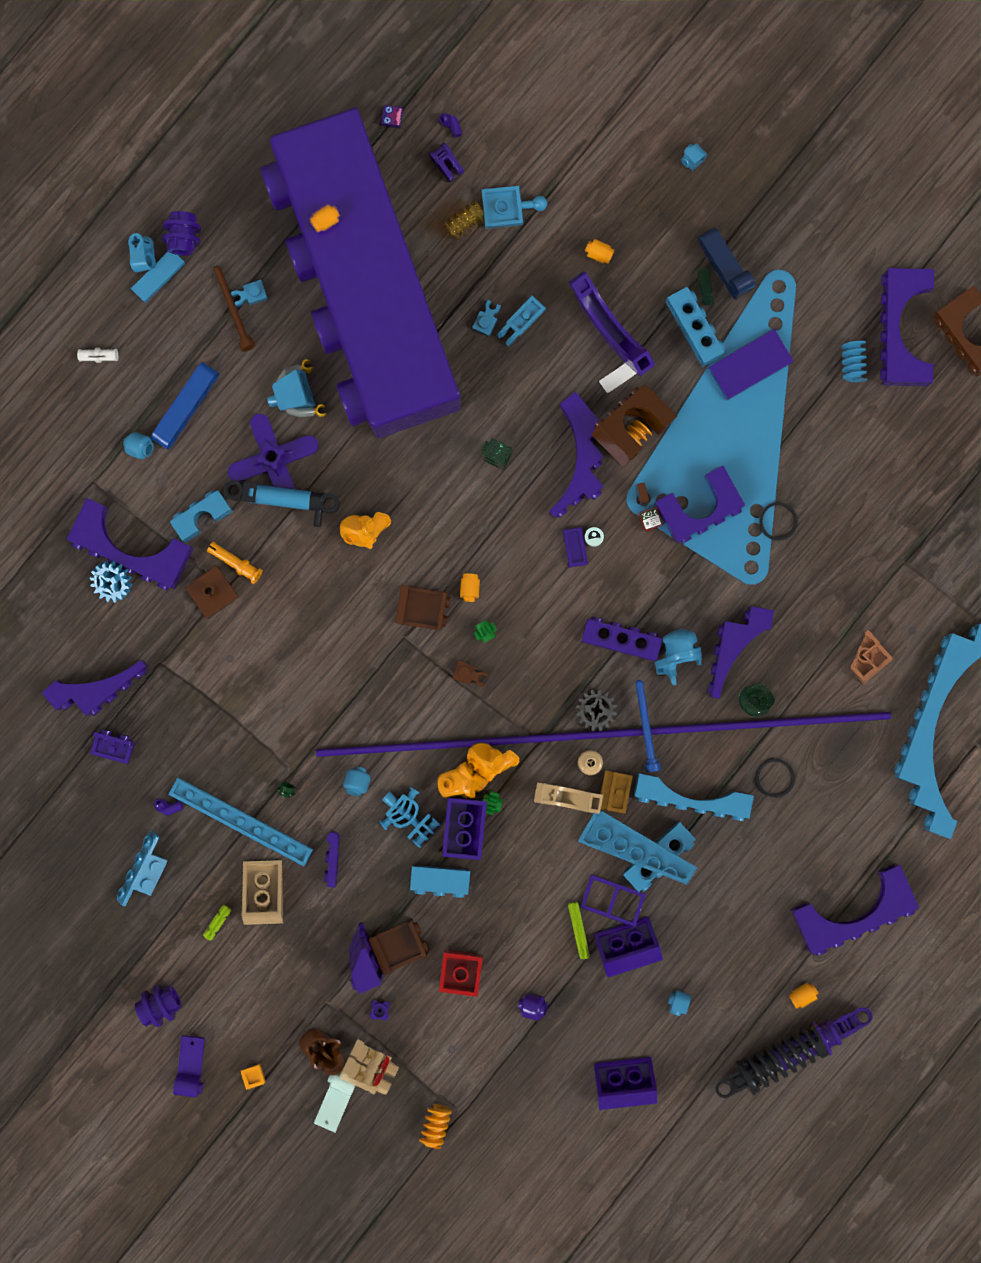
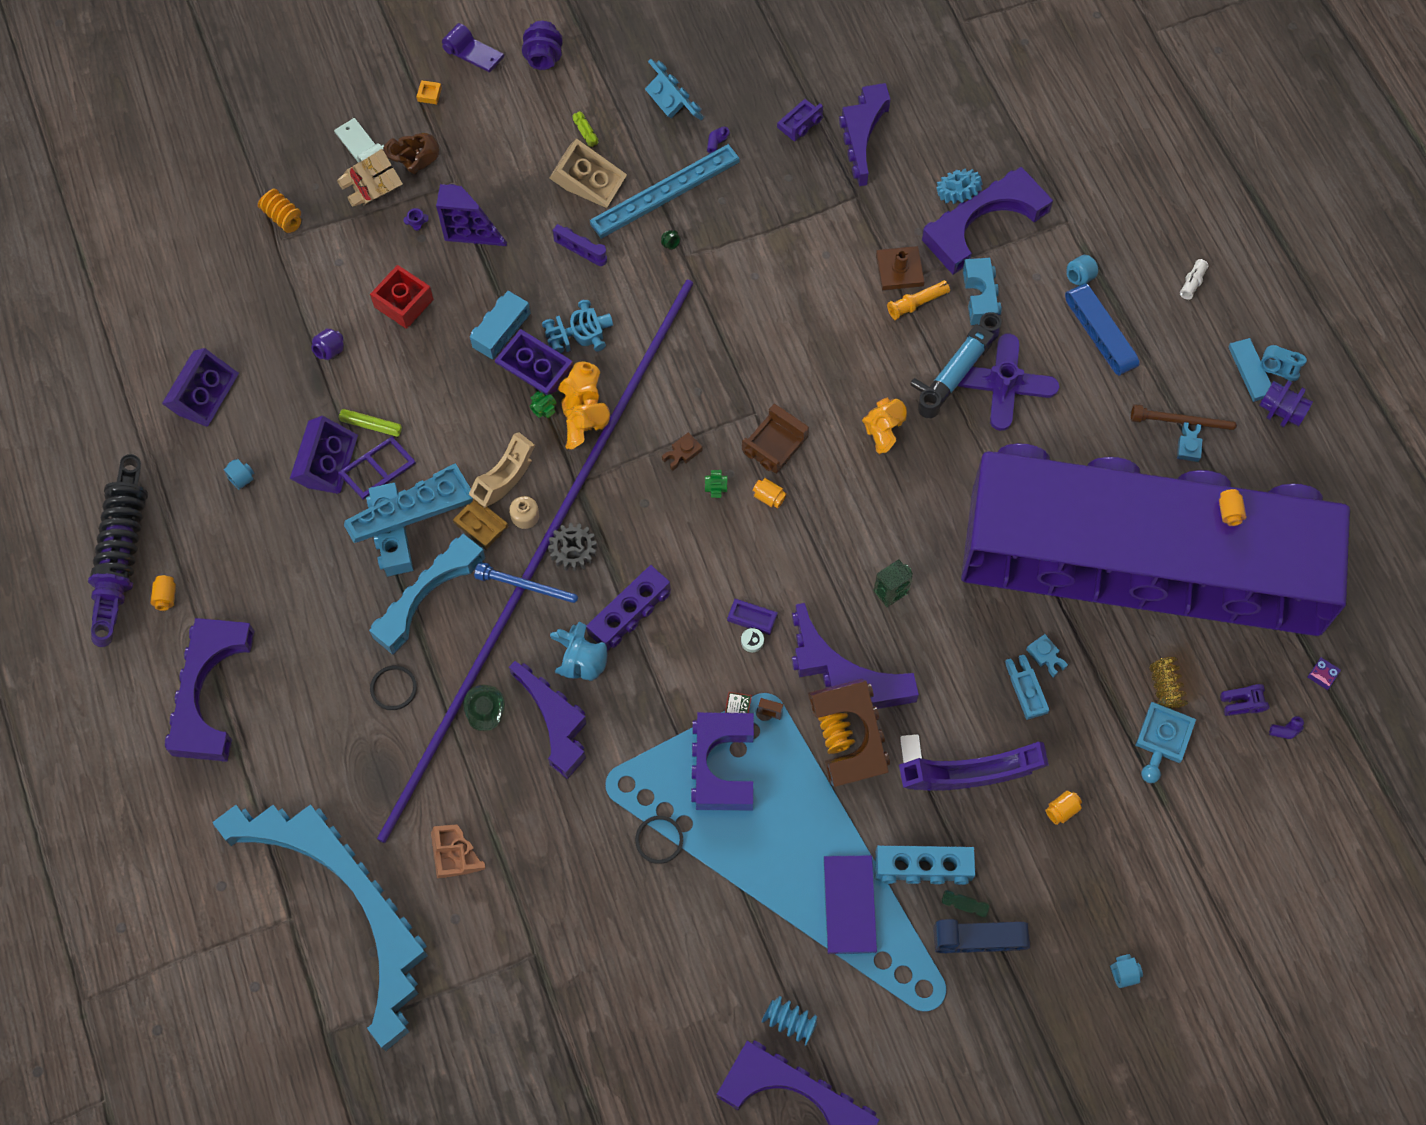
camera: 120 degrees right, 20 degrees down
(294, 393) = (1063, 428): dark azure torso -> none
(356, 781) = (640, 299): dark azure head -> none
(398, 946) = (463, 260): reddish brown panel -> none

